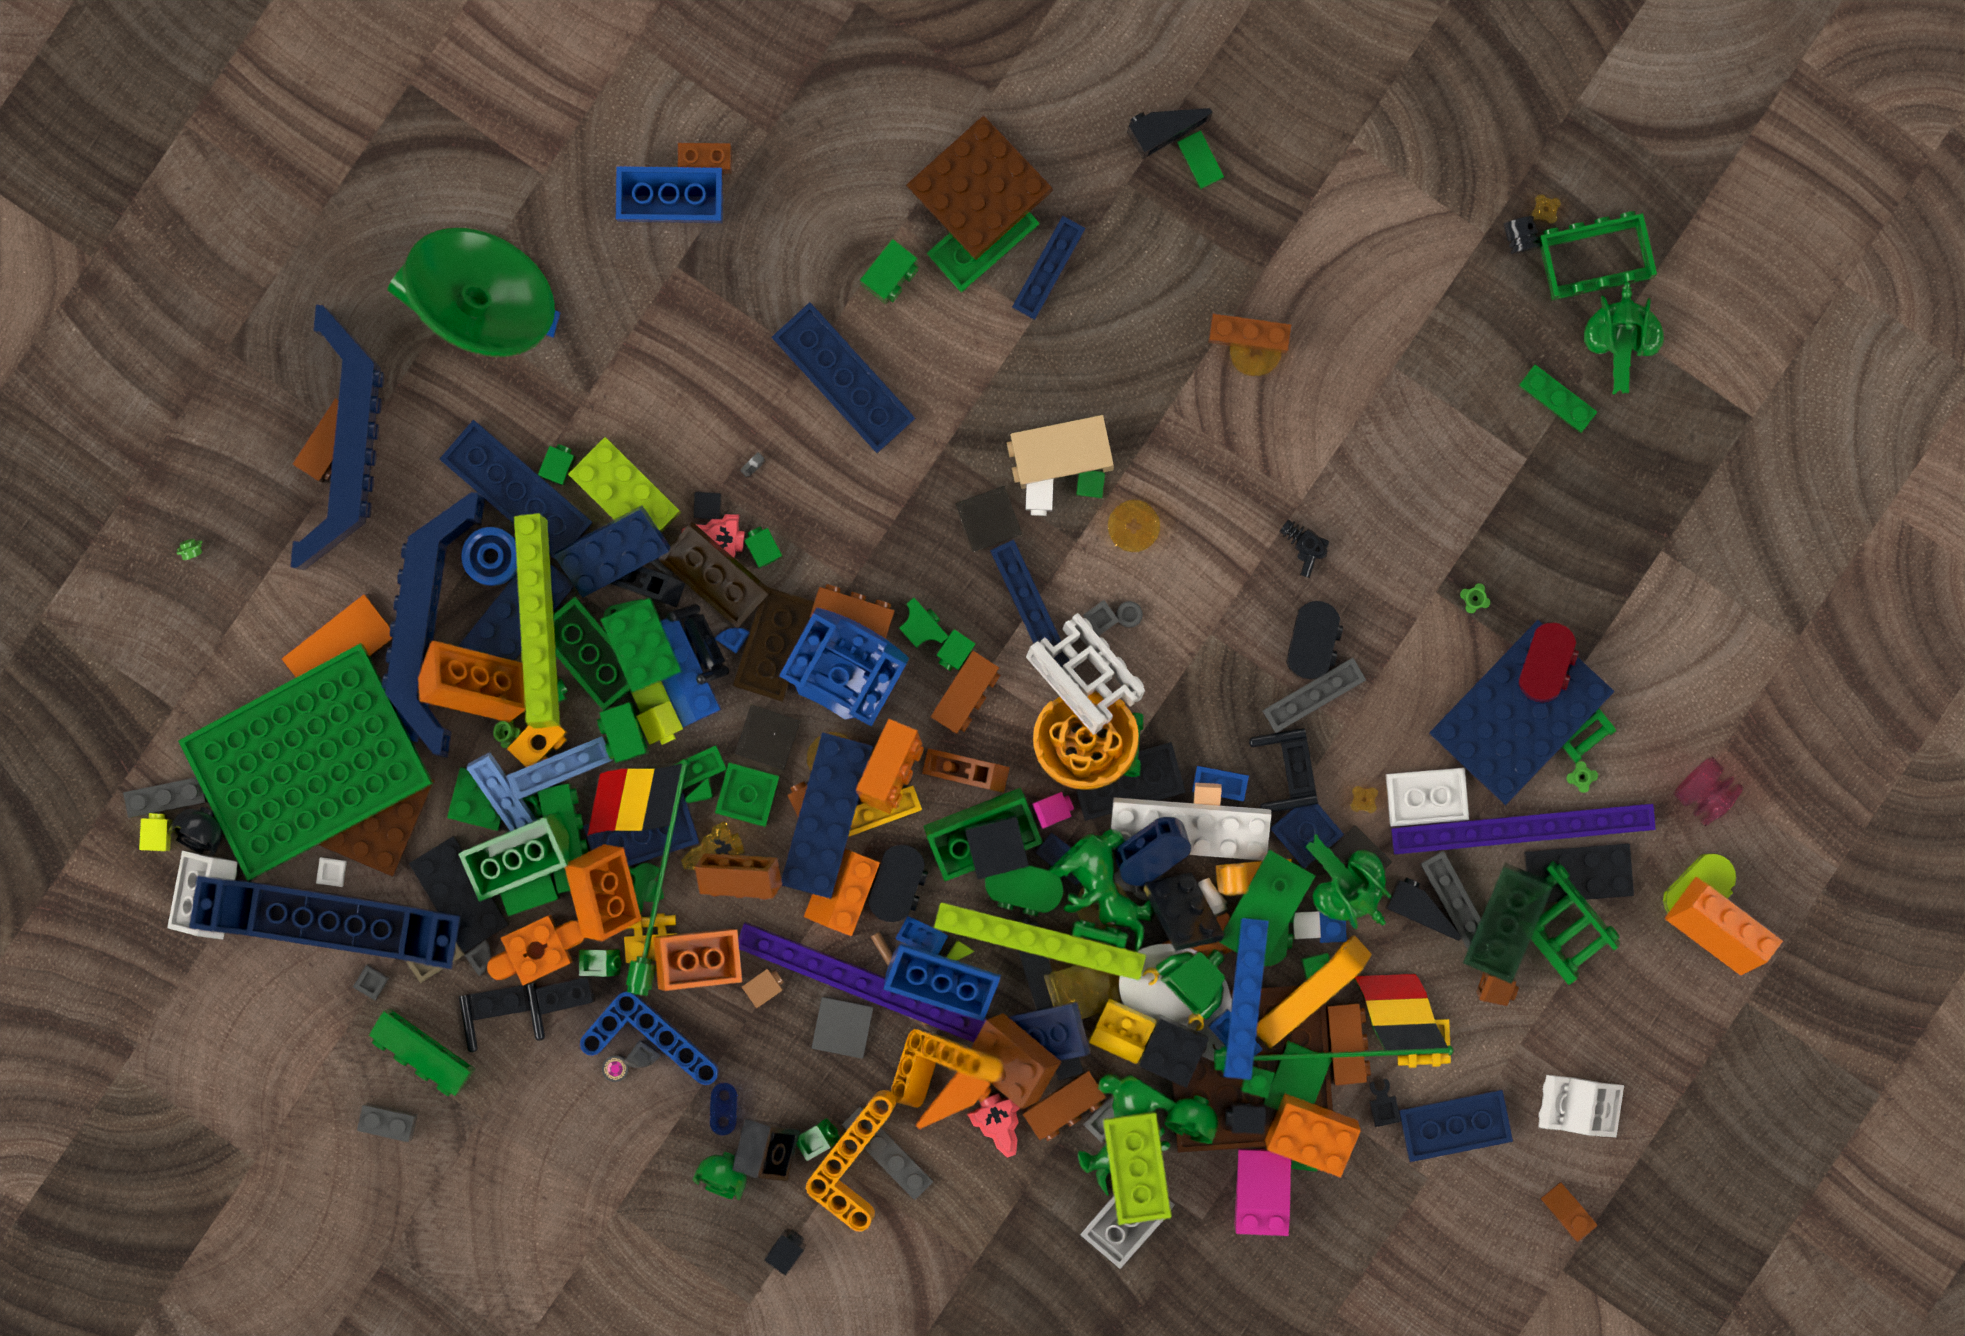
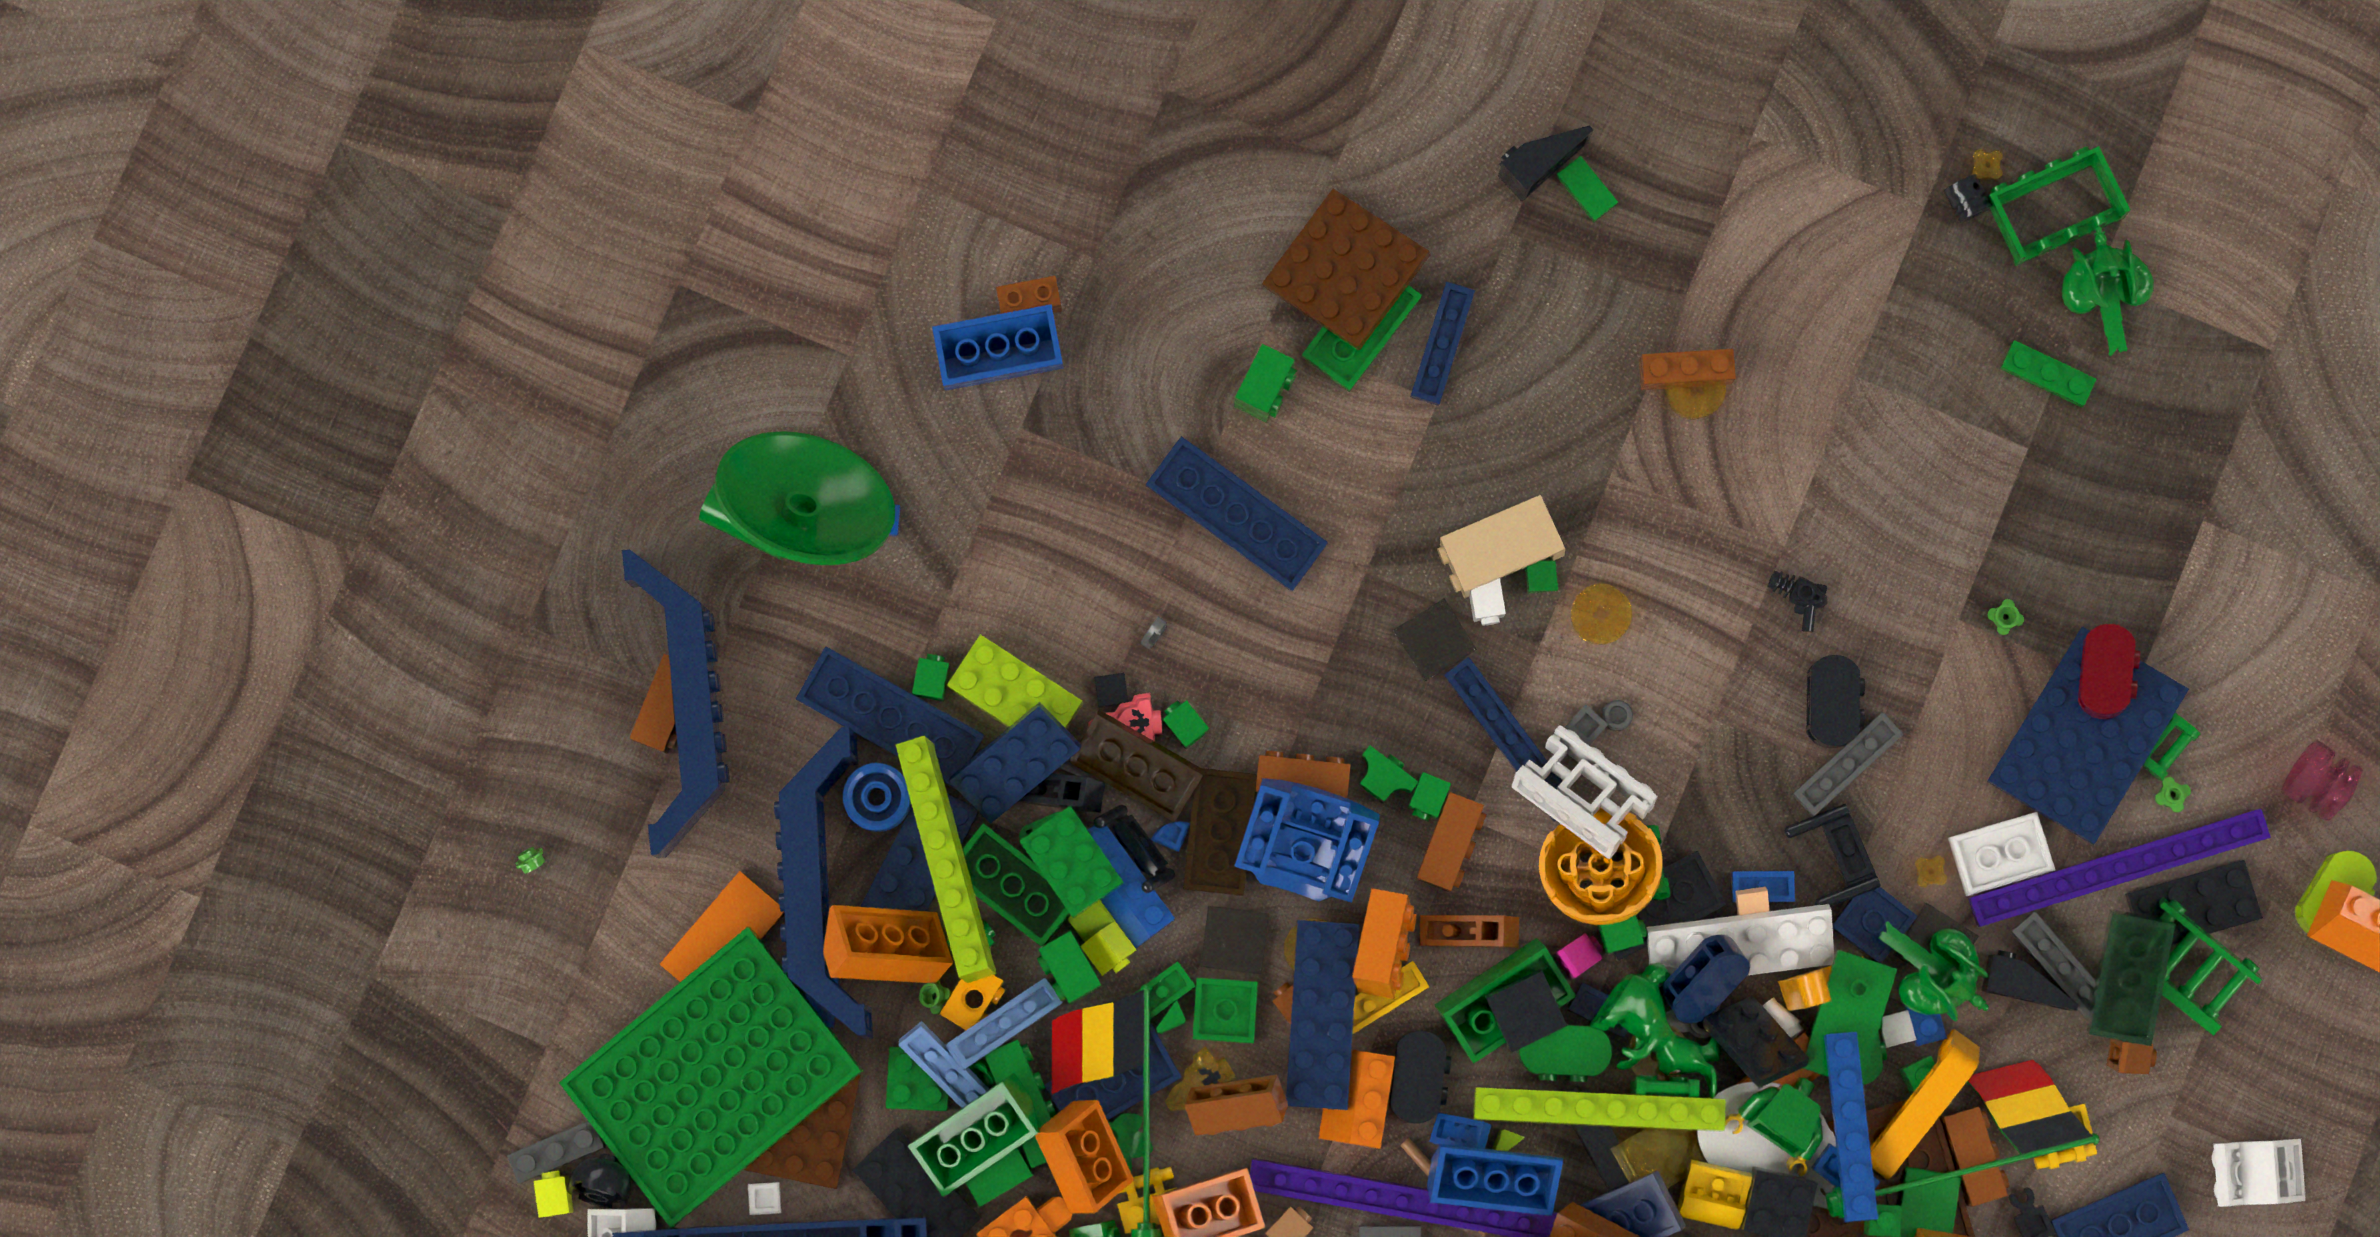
camera: 10 degrees left, 5 degrees down
(1092, 800) = (1622, 934): none -> green brick

